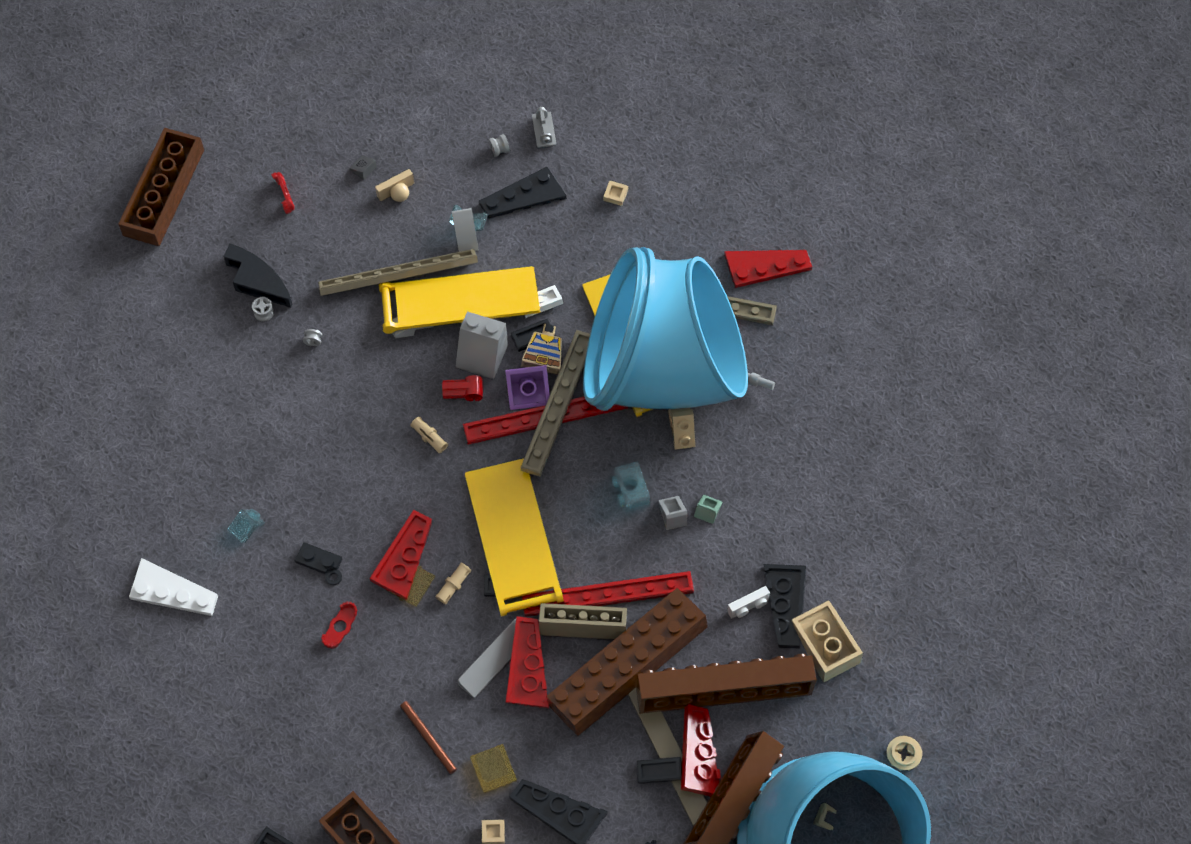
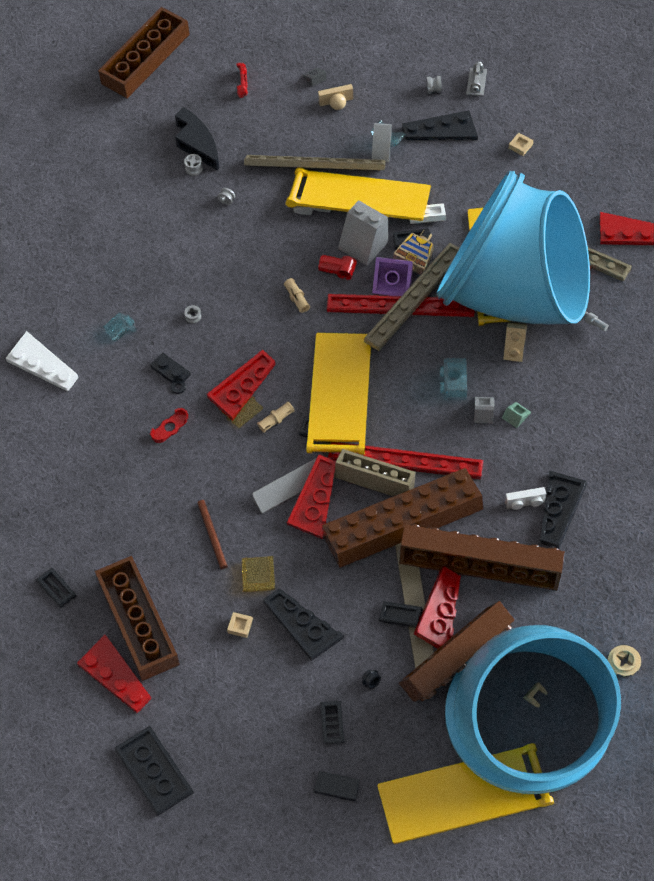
camera: 20 degrees right, 5 degrees down
(321, 494) = (189, 310): none -> light grey bush
(827, 641) = (584, 547): tan slope -> none

